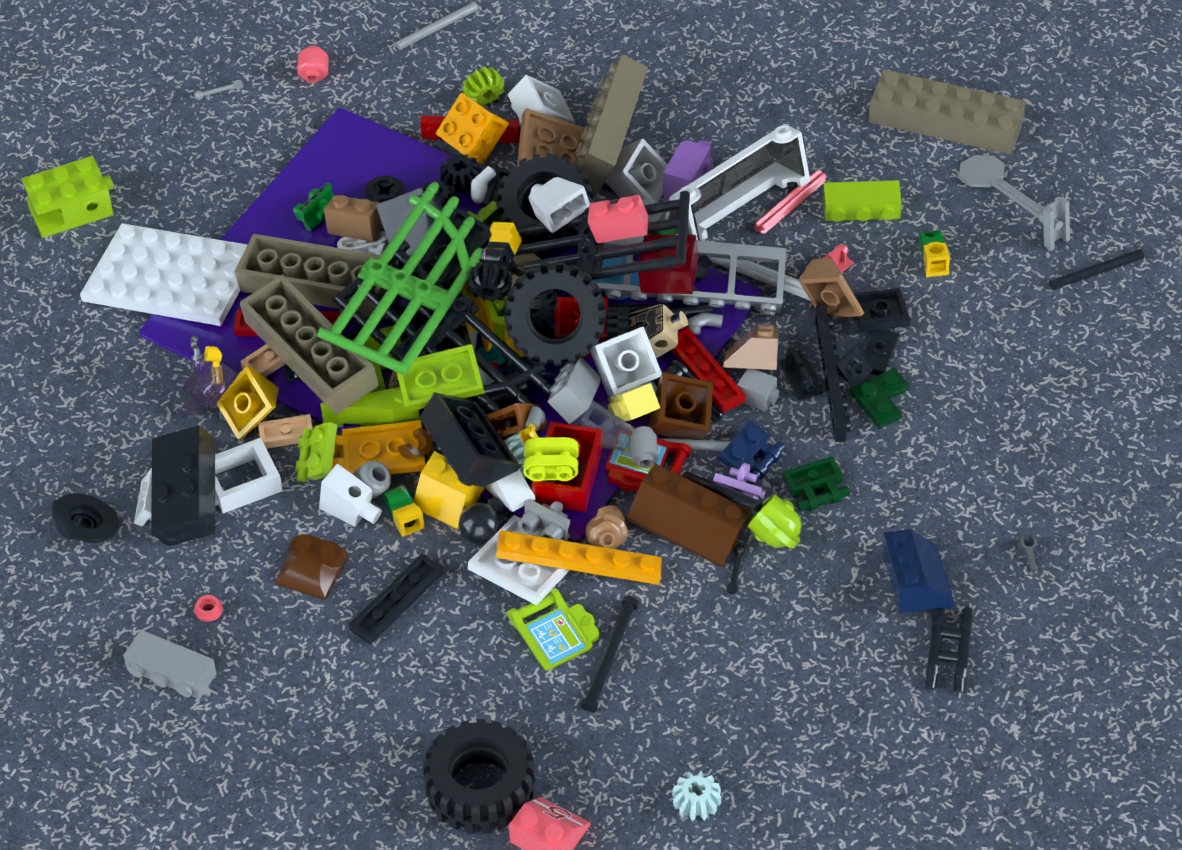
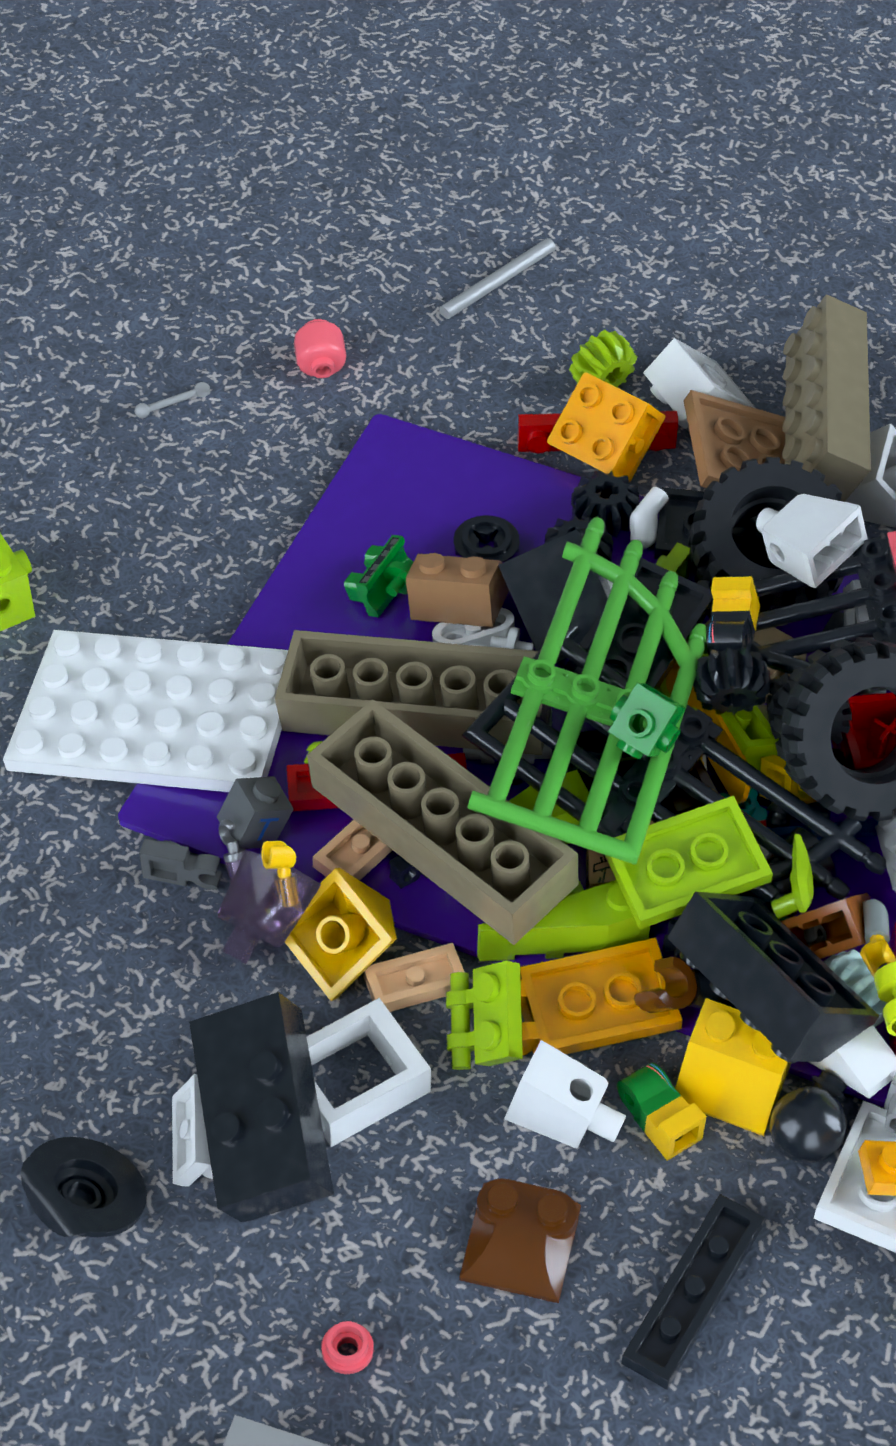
camera: 10 degrees left, 0 degrees up
(164, 359) = (174, 864): none -> dark grey plate
(213, 331) = (257, 810): none -> dark grey brick
(375, 476) = (601, 1051): light grey head -> none
(424, 297) = (661, 716): none -> brick
(500, 395) = (801, 883): none -> lime bar

